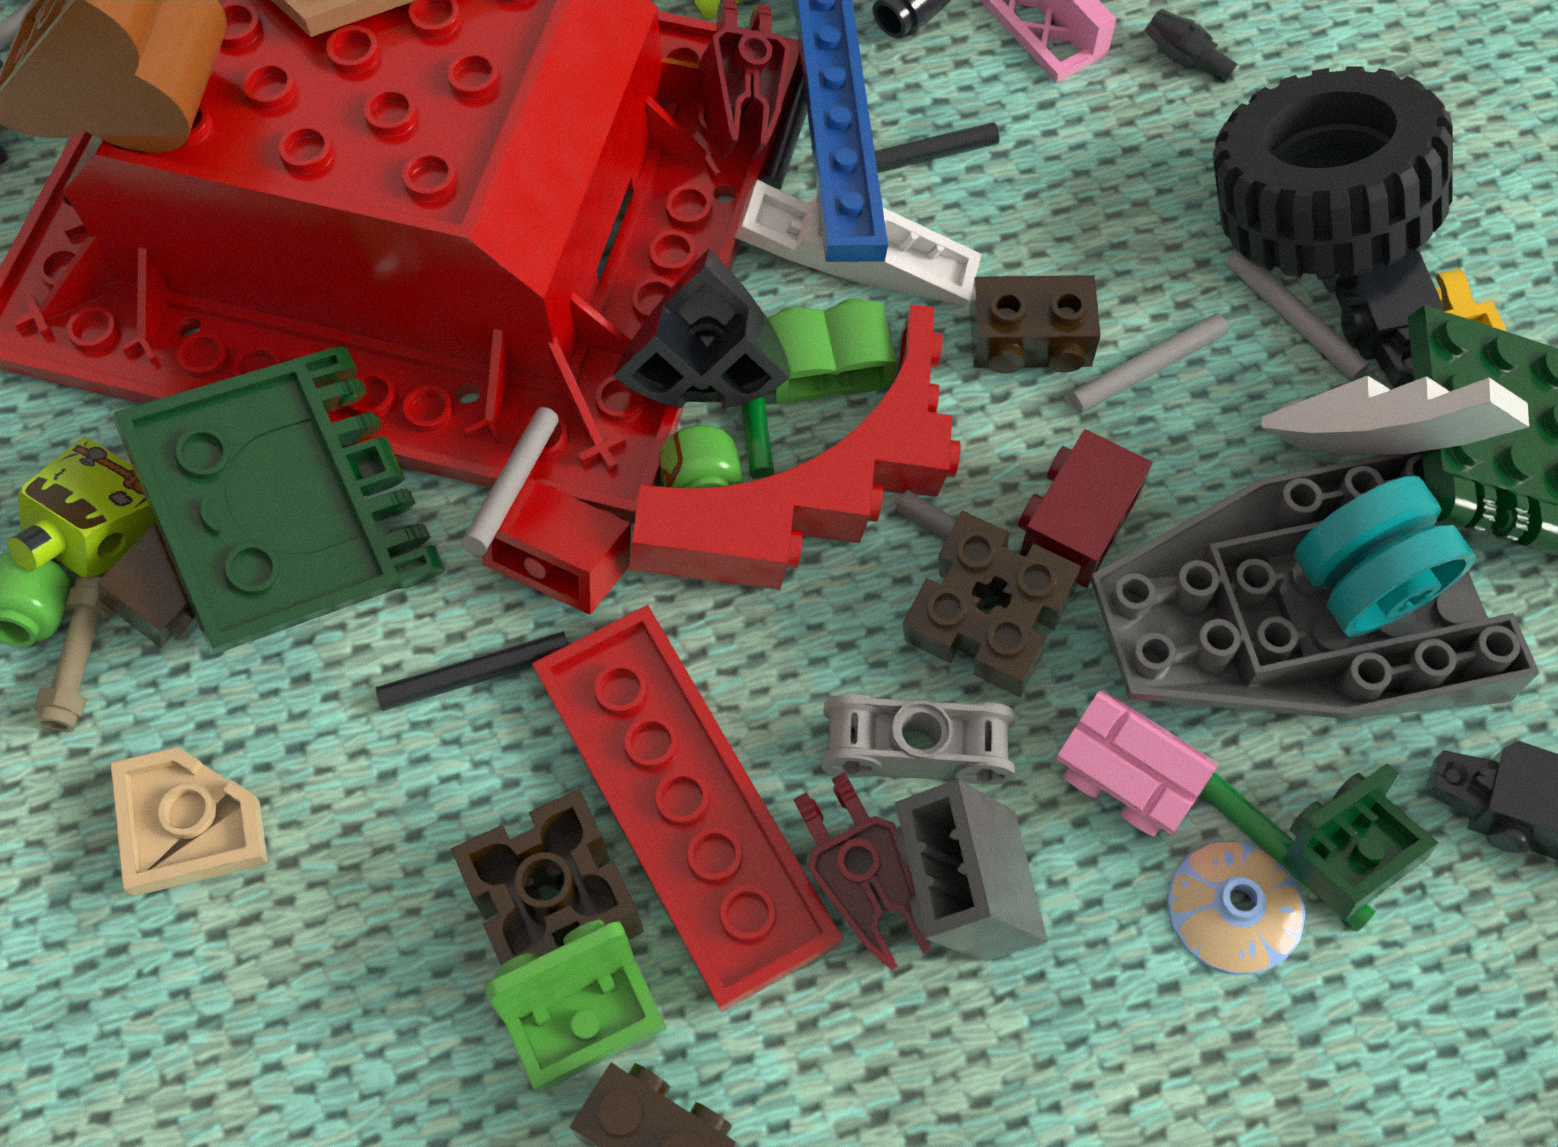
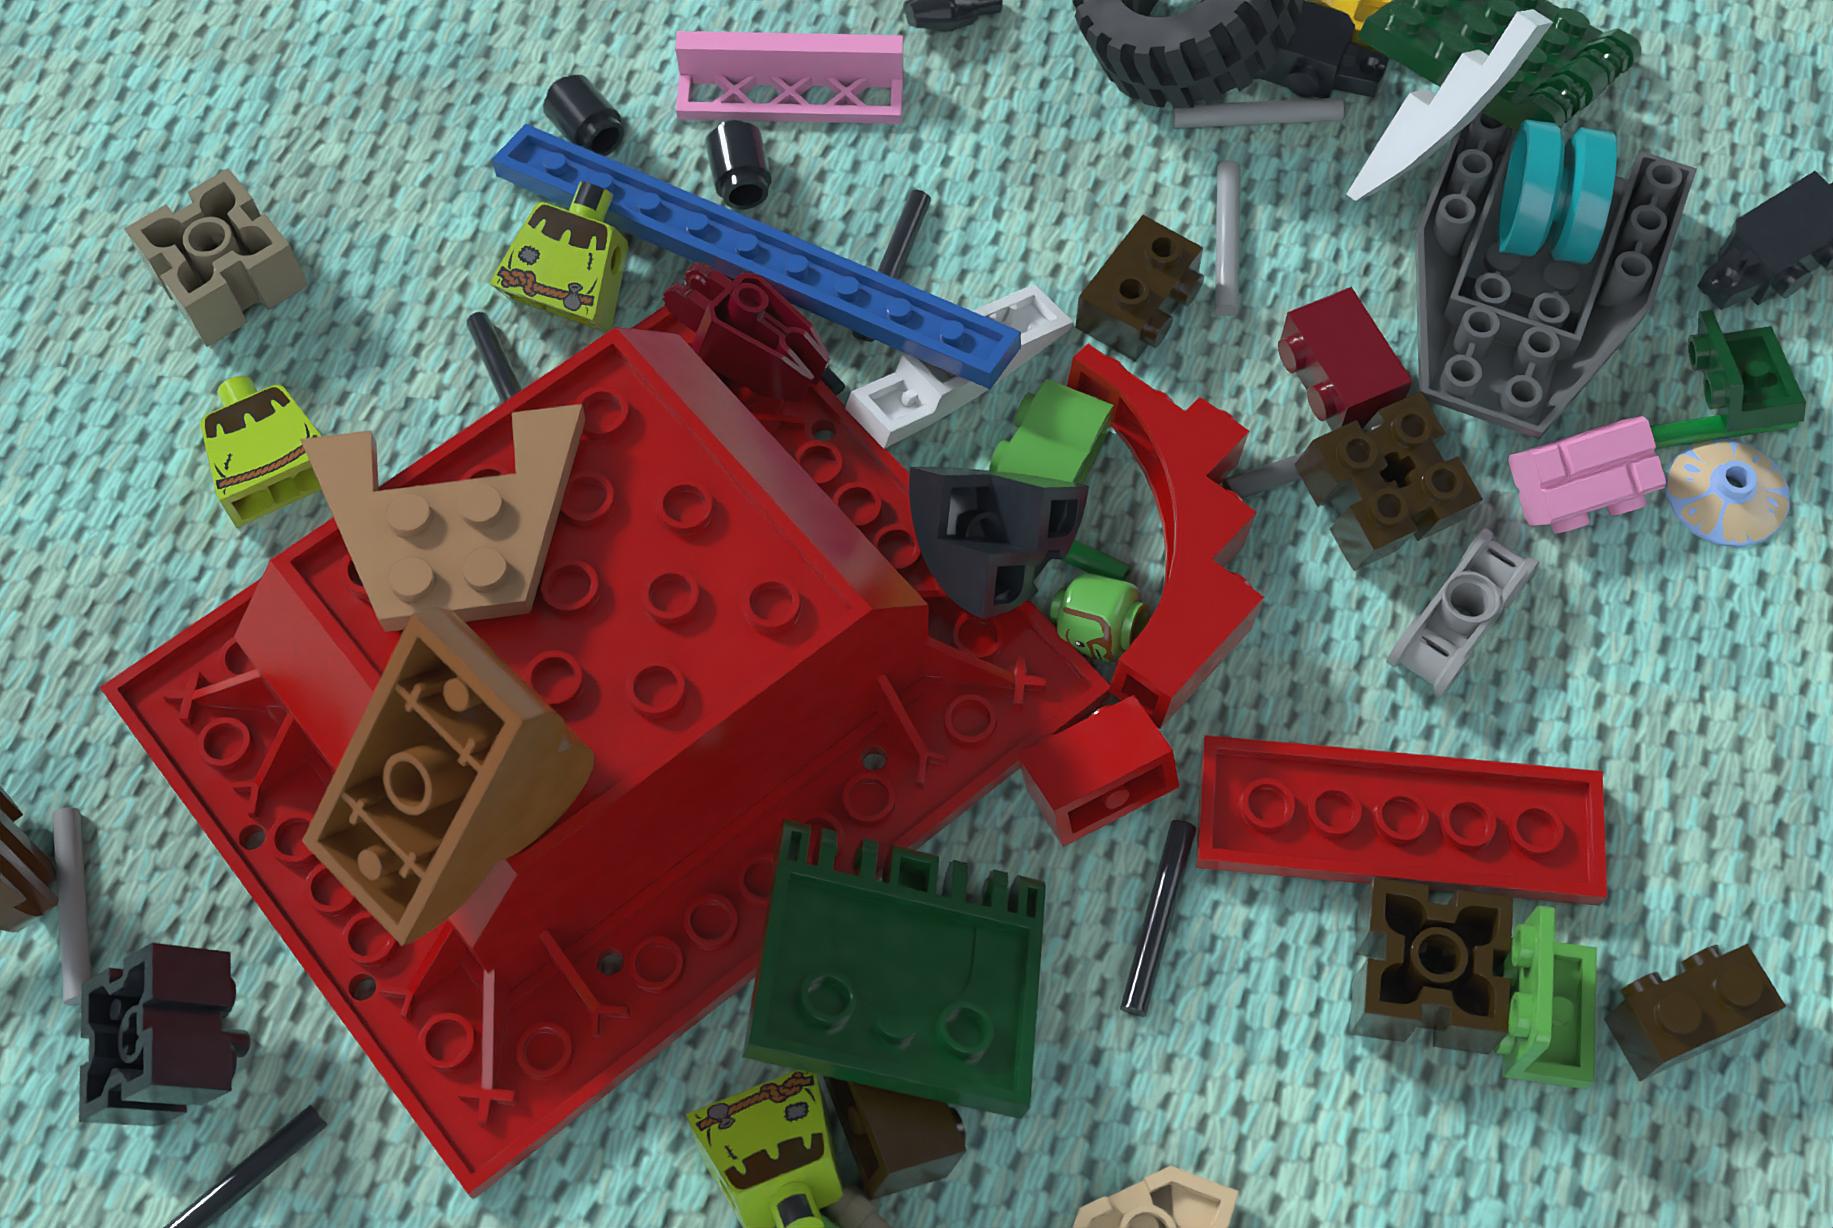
camera: 55 degrees left, 0 degrees up
(509, 482) = (1029, 763): light grey bar -> none
(854, 862) = (1562, 718): dark red hinge -> none
(968, 872) = (1638, 644): dark grey brick -> none

